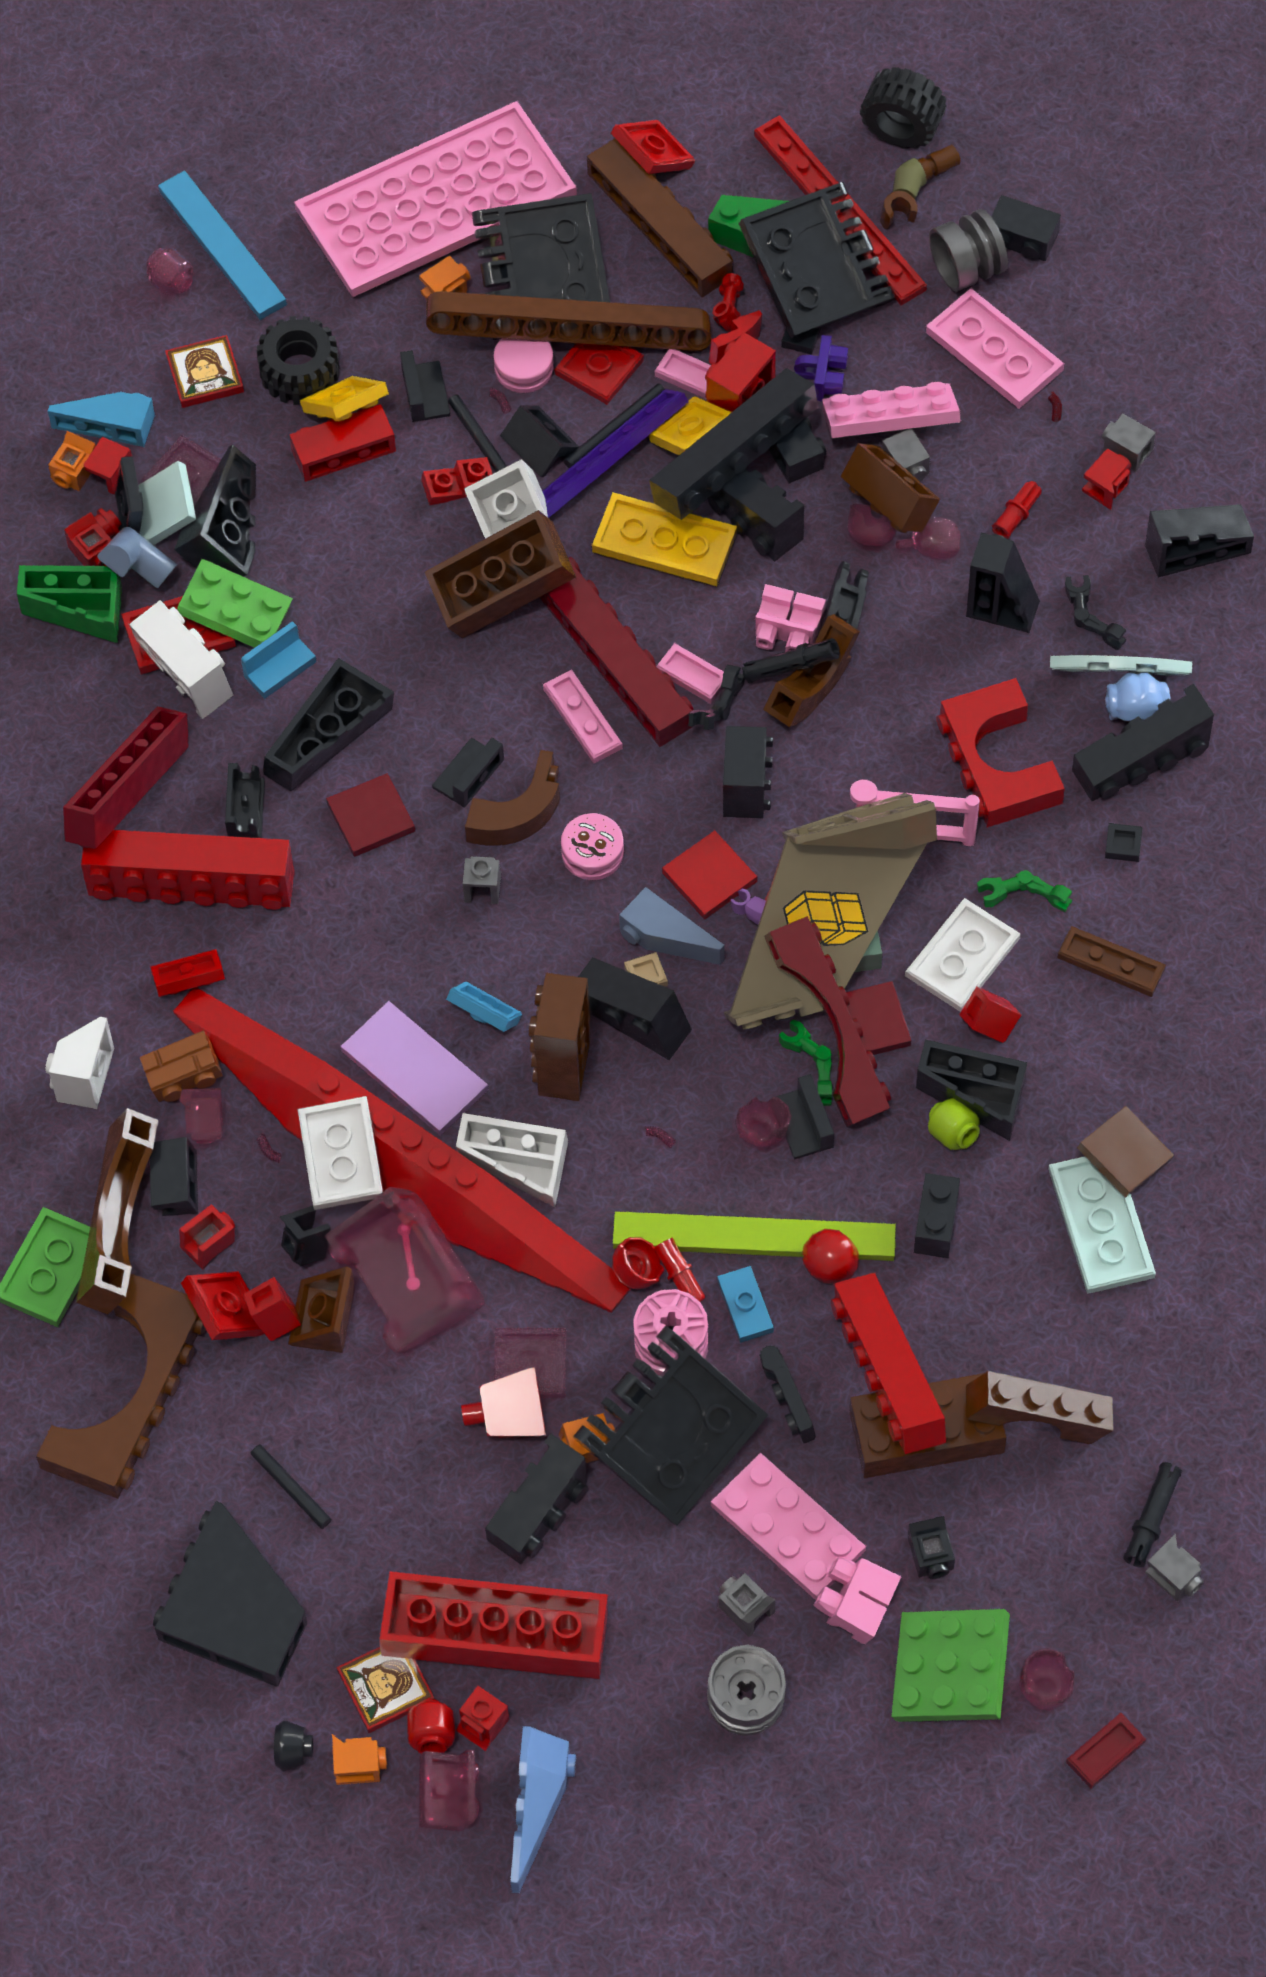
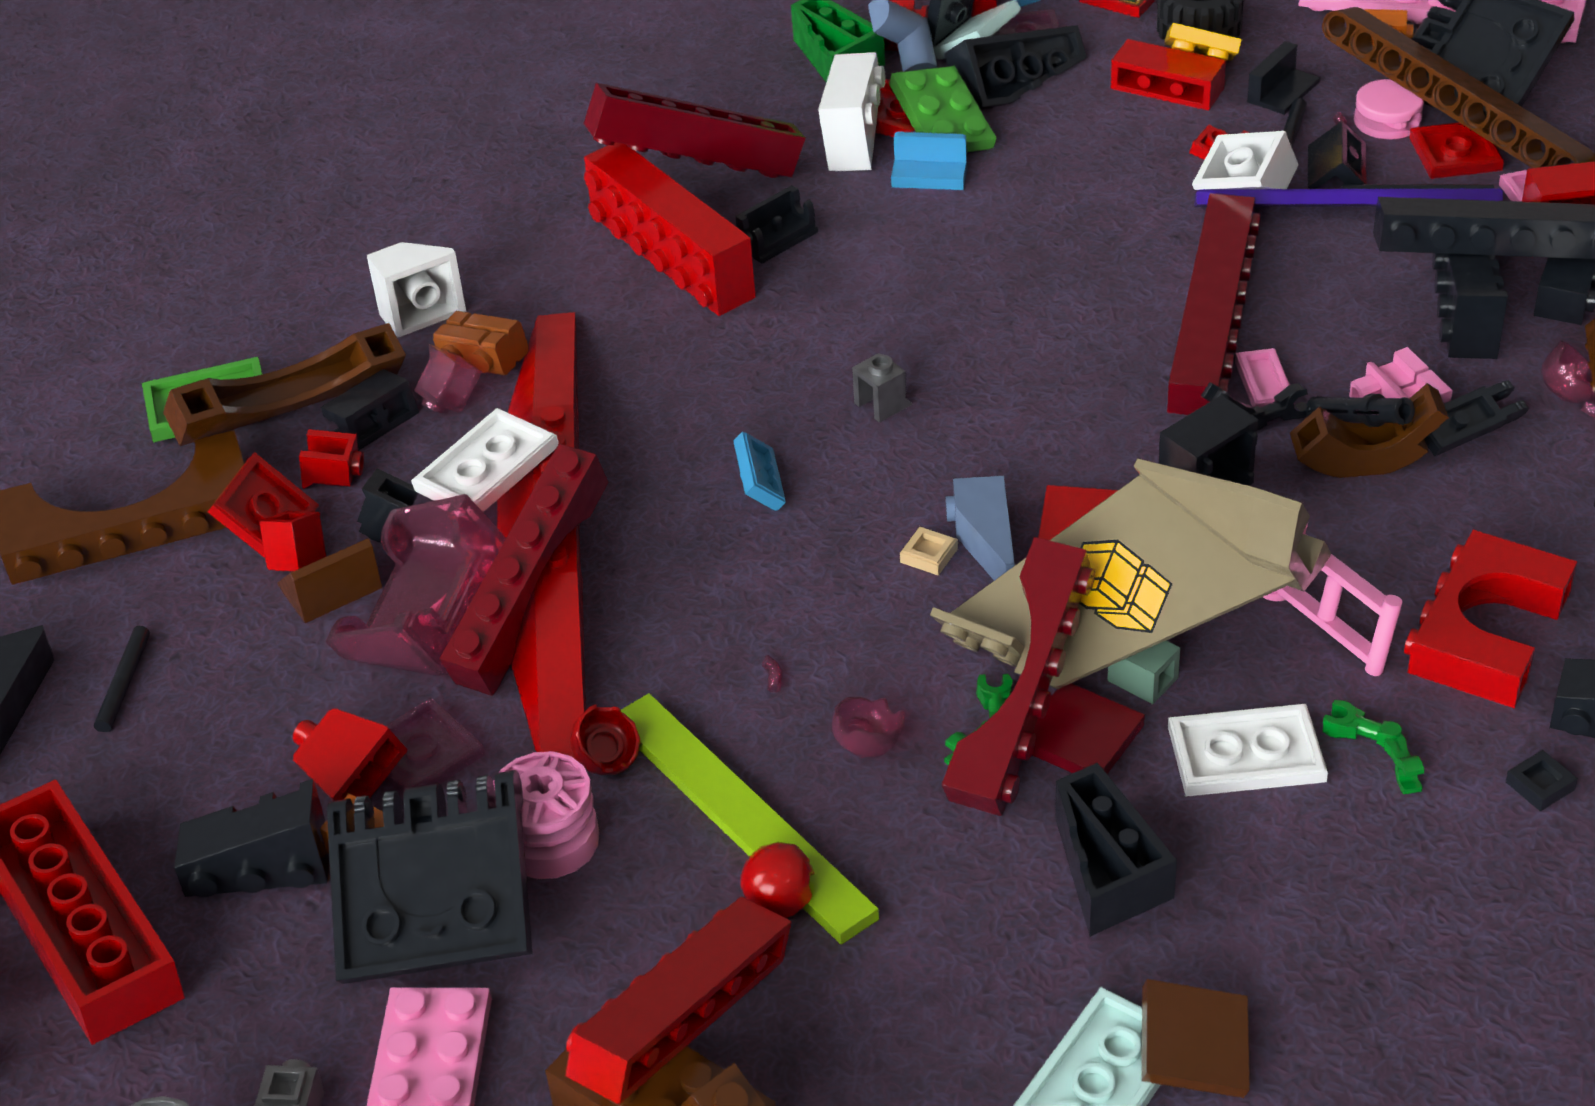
camera: 50 degrees right, 20 degrees down
(187, 973) = (571, 293): red plate -> none
(328, 721) = (902, 214): black wedge -> none
(370, 815) = (862, 298): dark red tile -> none
(414, 1068) = (648, 477): lavender tile -> none
(466, 1199) = (490, 626): none -> dark red arch
(469, 770) = (981, 321): black panel -> none
(500, 574) = (1171, 196): reddish brown brick -> none
(516, 1153) = (628, 583): white wedge -> none
(517, 819) = (982, 371): reddish brown arch -> none
(560, 1036) = (762, 503): reddish brown brick -> none
(582, 716) = (1126, 348): bright pink tile -> none
(592, 846) = (1007, 430): bright pink head -> none
(636, 1007) = (875, 559): black wedge -> none
(658, 540) = (1361, 279): yellow plate -> none
(678, 1269) = (632, 781): red axle -> none
(745, 1304) = (655, 860): dark azure plate -> none
(786, 1391) = (580, 962): black hinge -> none
(809, 1125) = (914, 759): black panel -> none
(936, 1215) = (923, 930): black brick -> none
(953, 1124) = (1045, 870): lime head -> none
(990, 1014) = (1206, 812): red panel -> none
(1111, 961) = (1401, 870): reddish brown tile -> none

